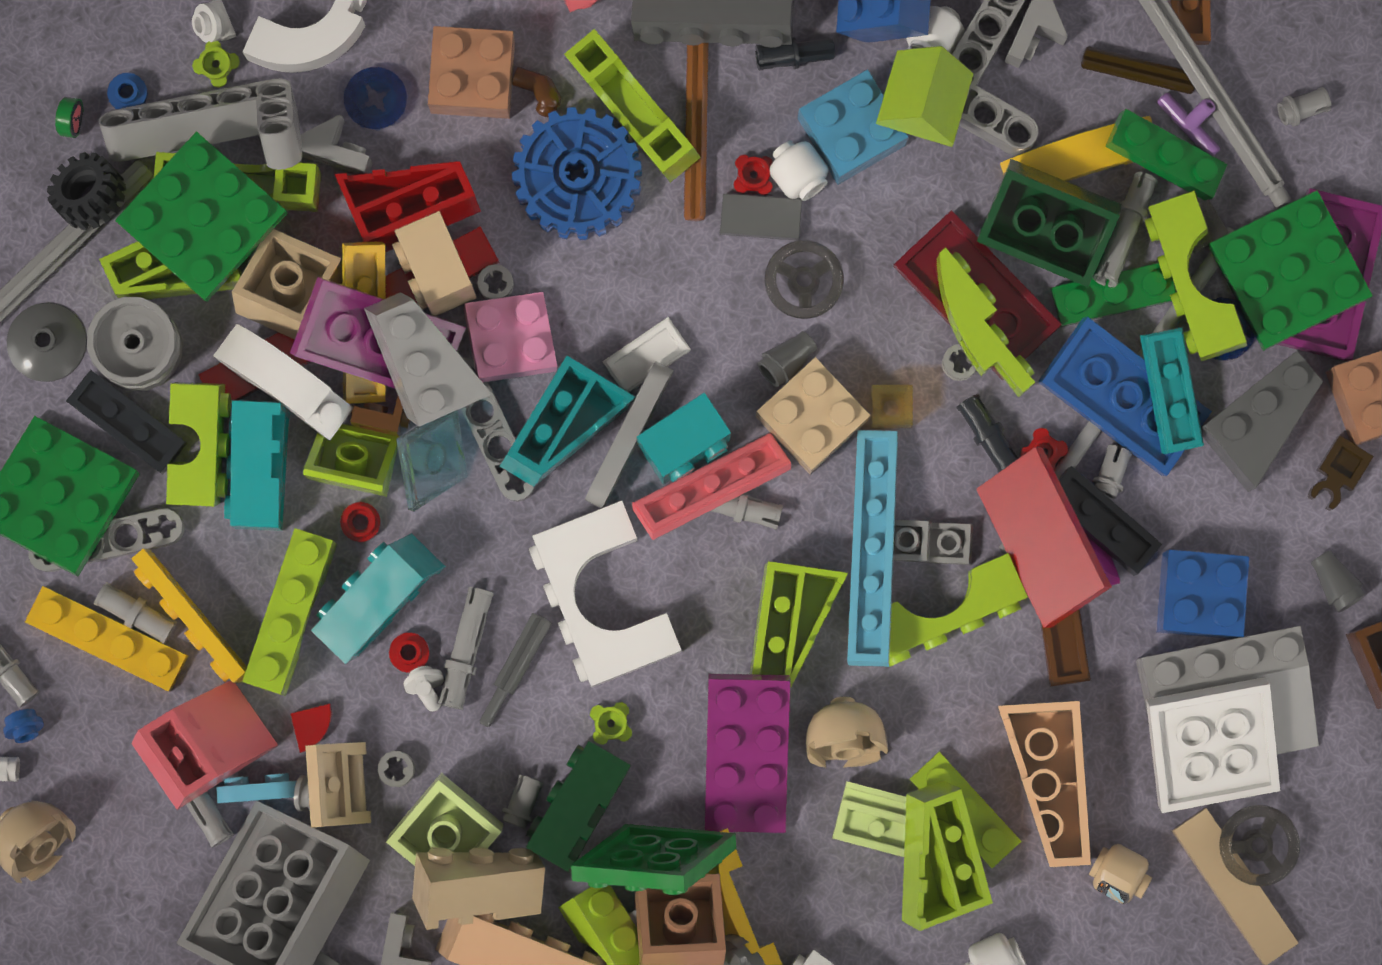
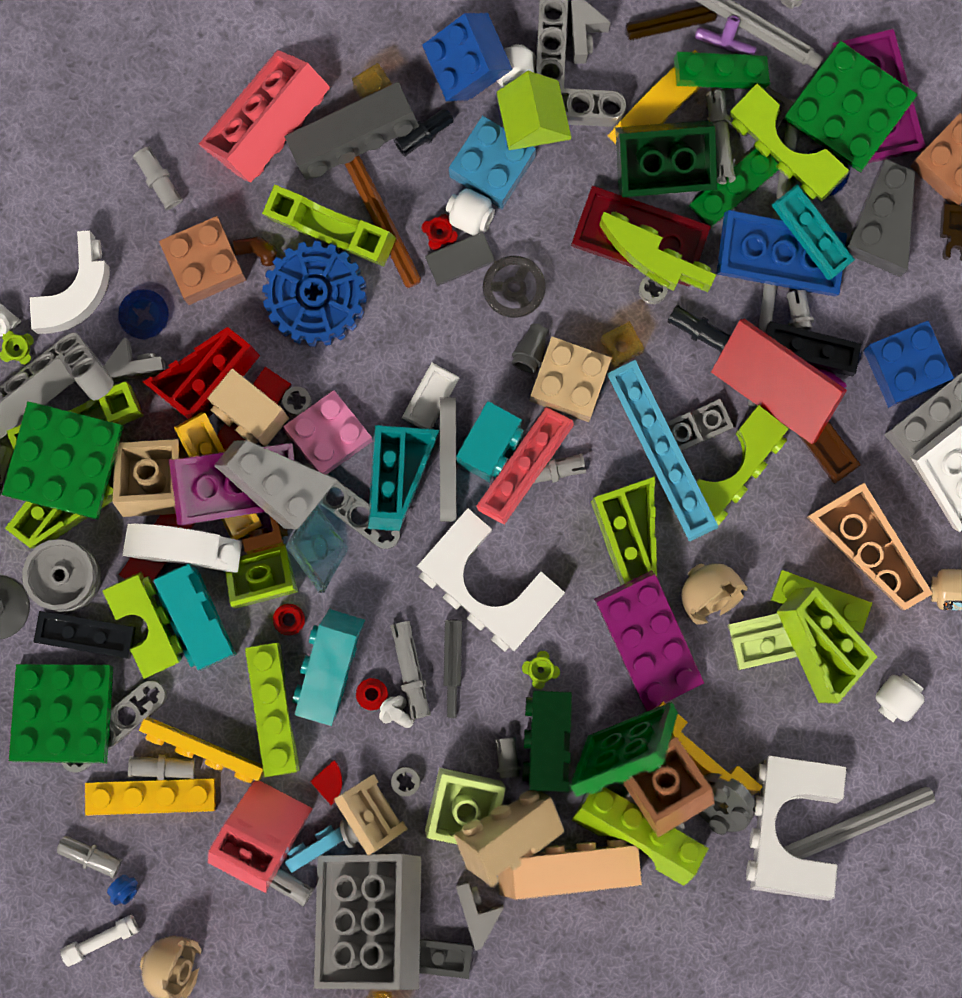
camera: 25 degrees left, 0 degrees up
(1042, 439) = (738, 313): red plate -> none

